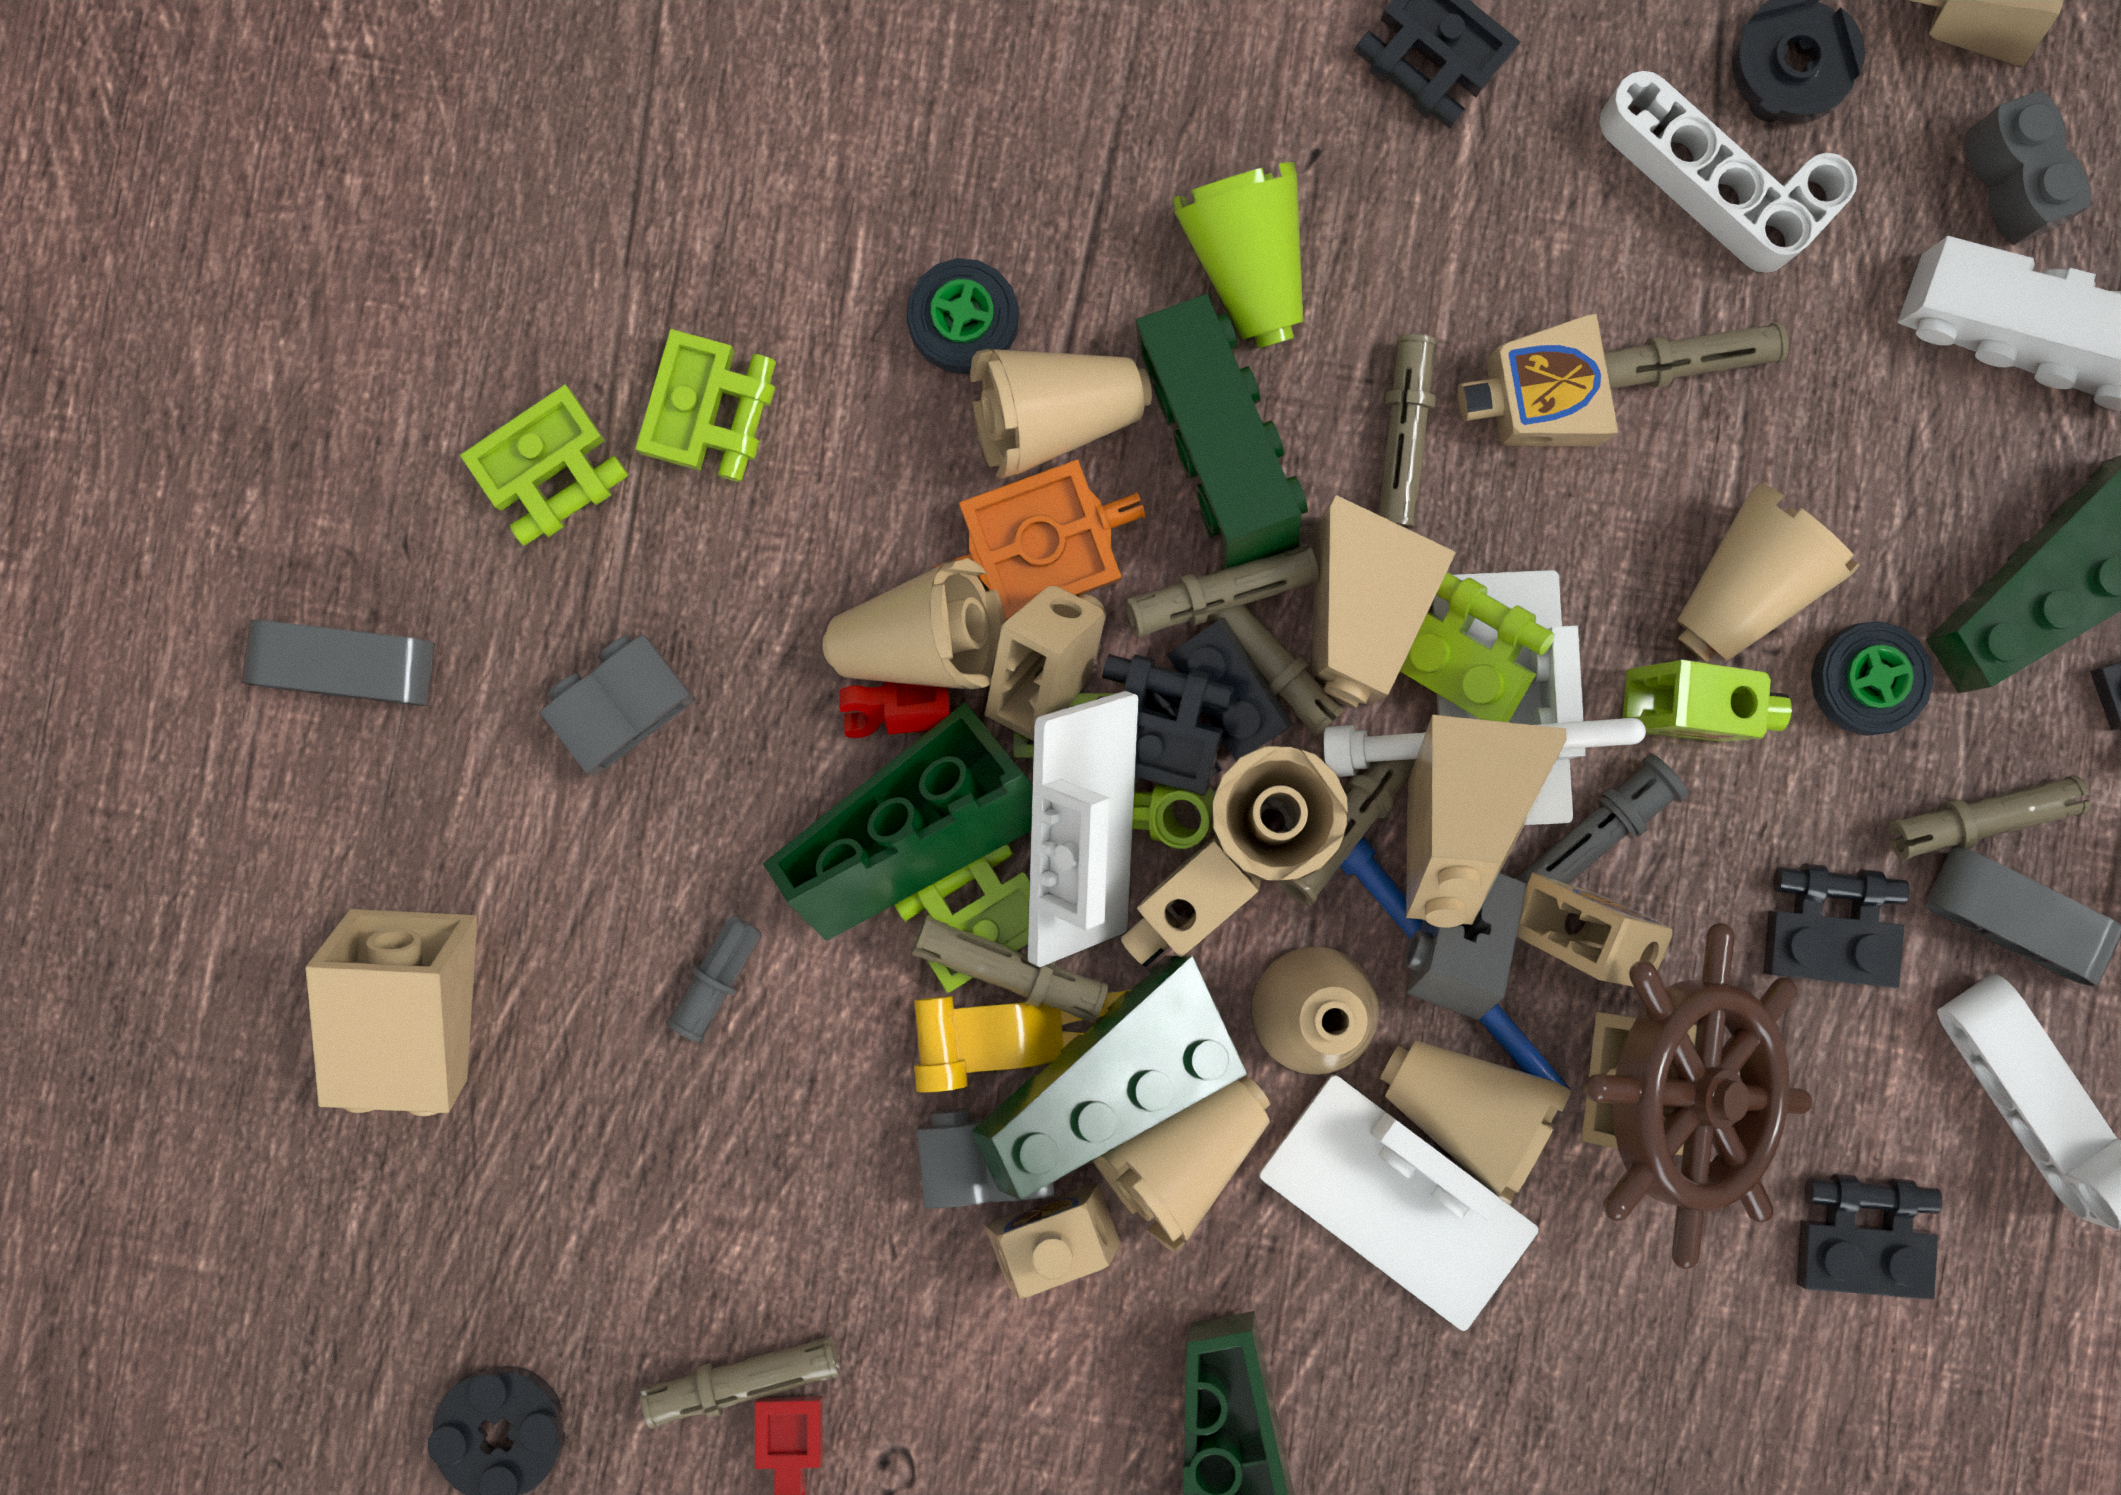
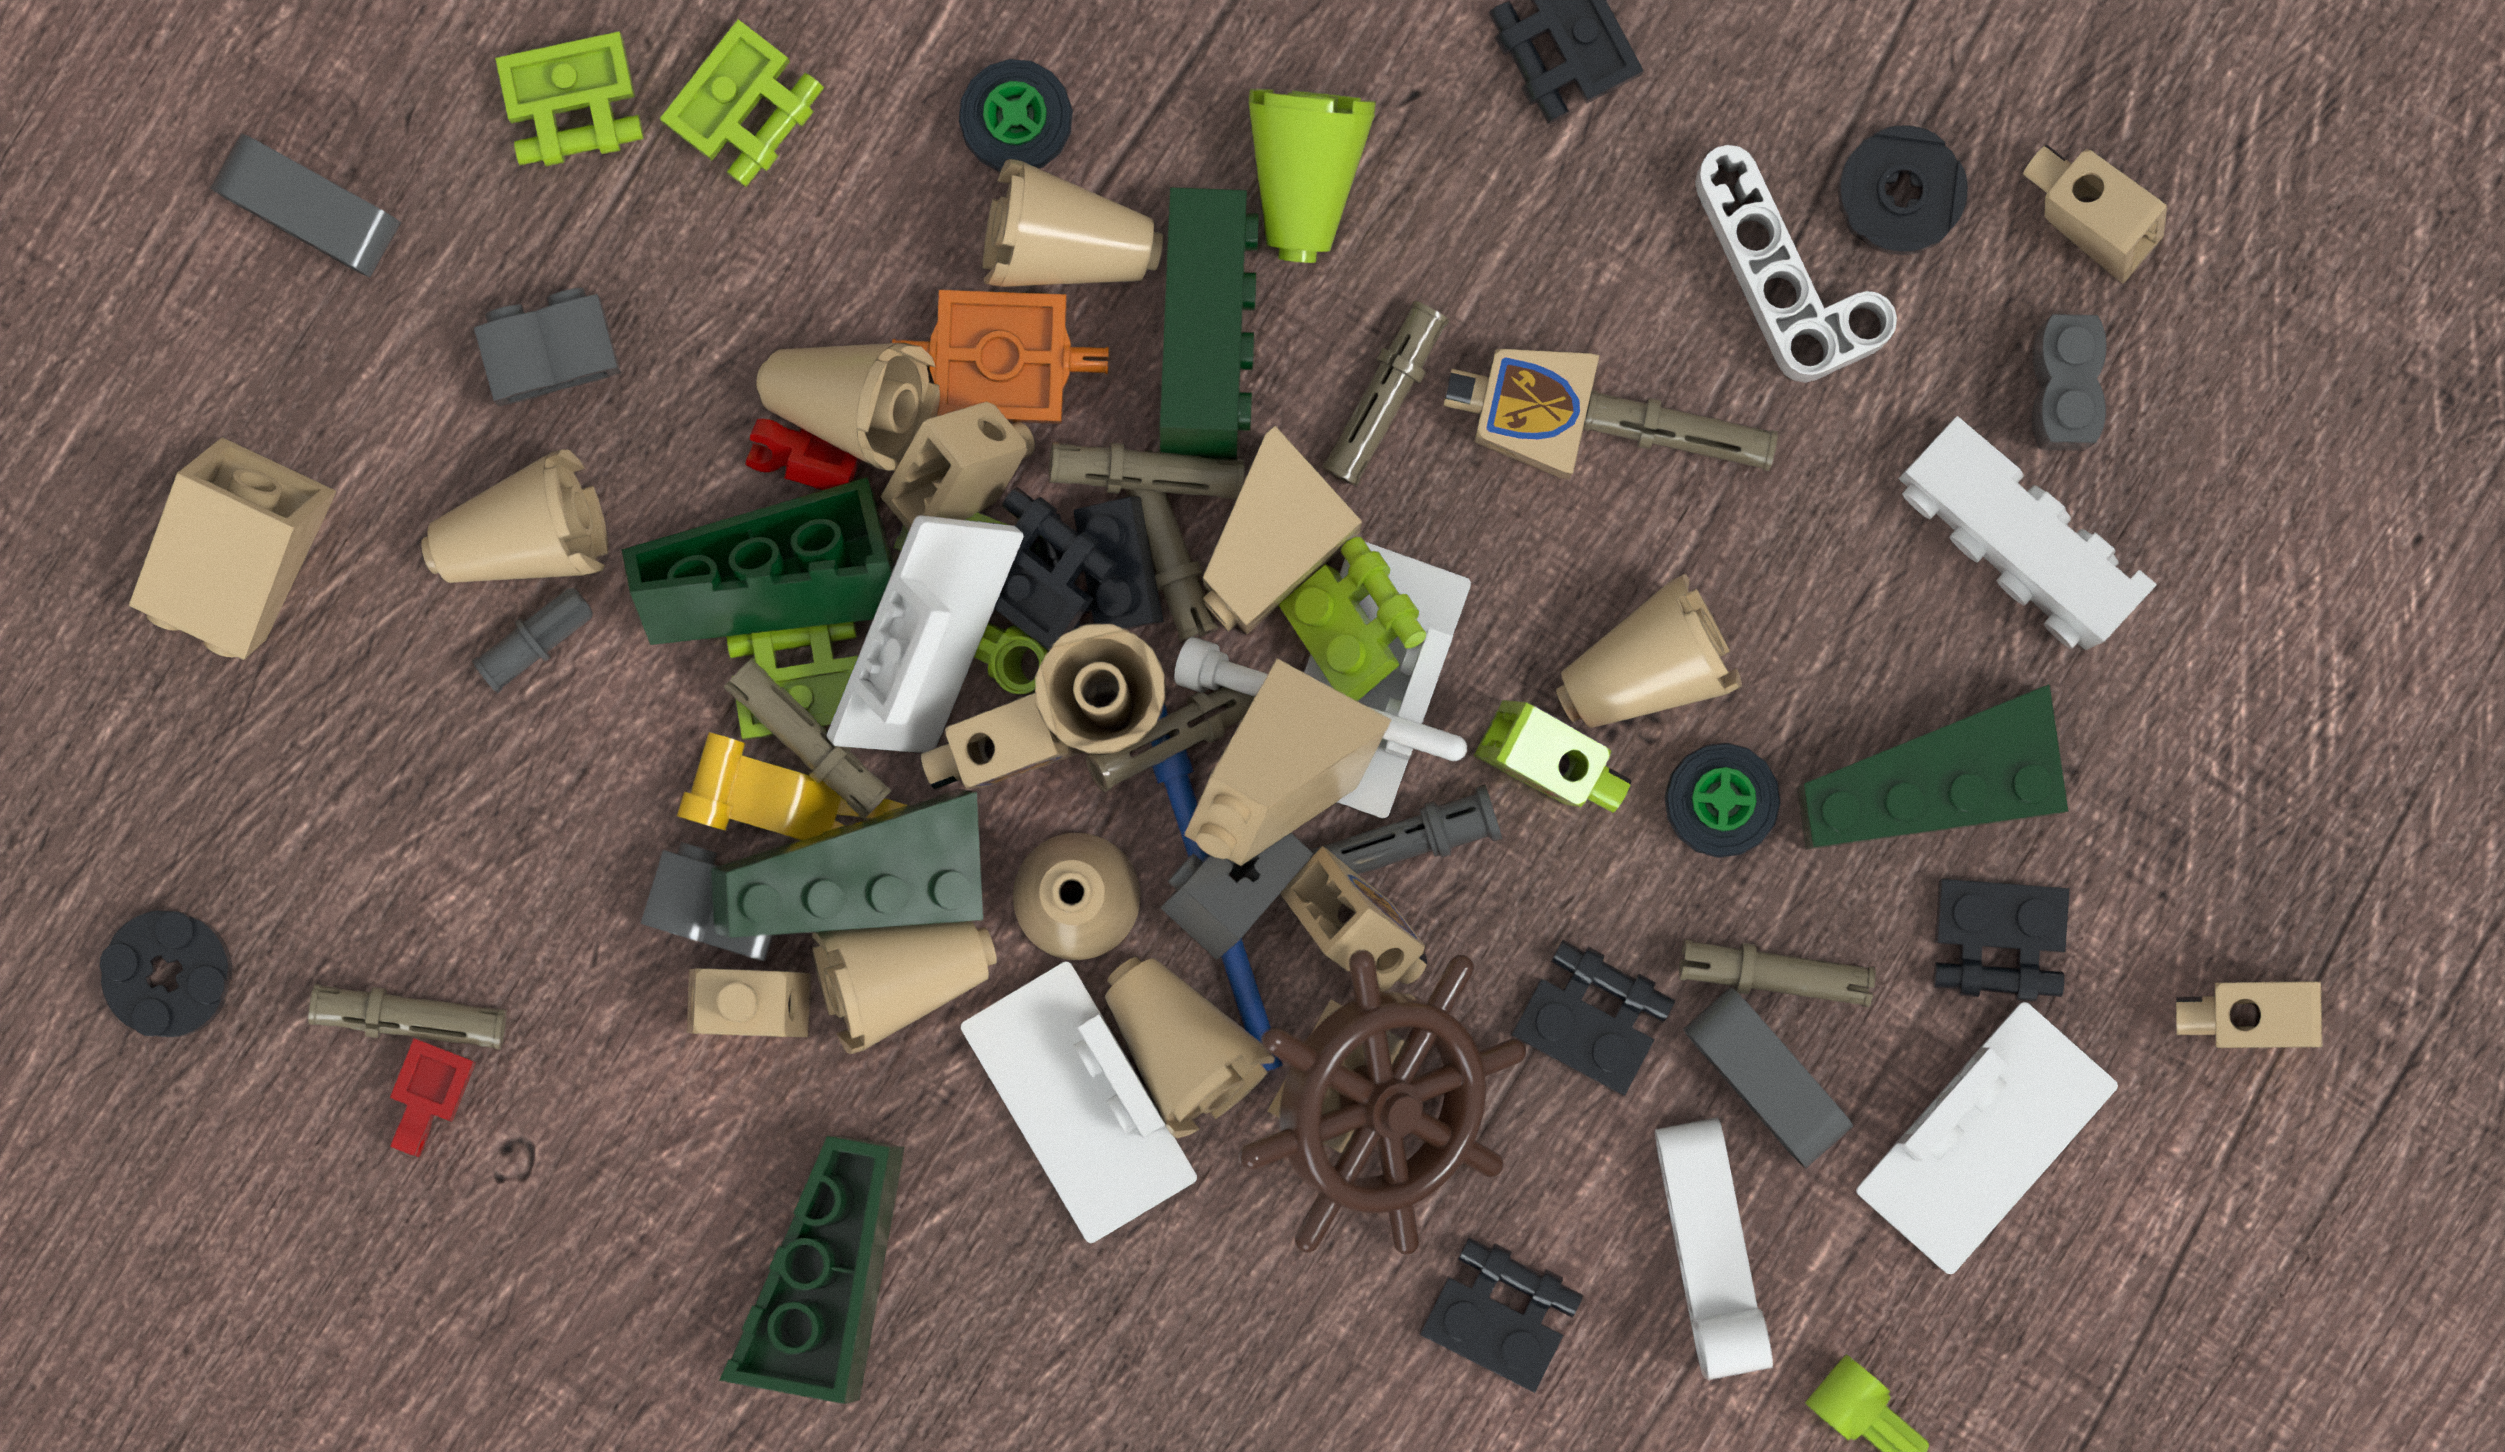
camera: 25 degrees right, 0 degrees up
(662, 880) = (522, 528): none -> tan cone

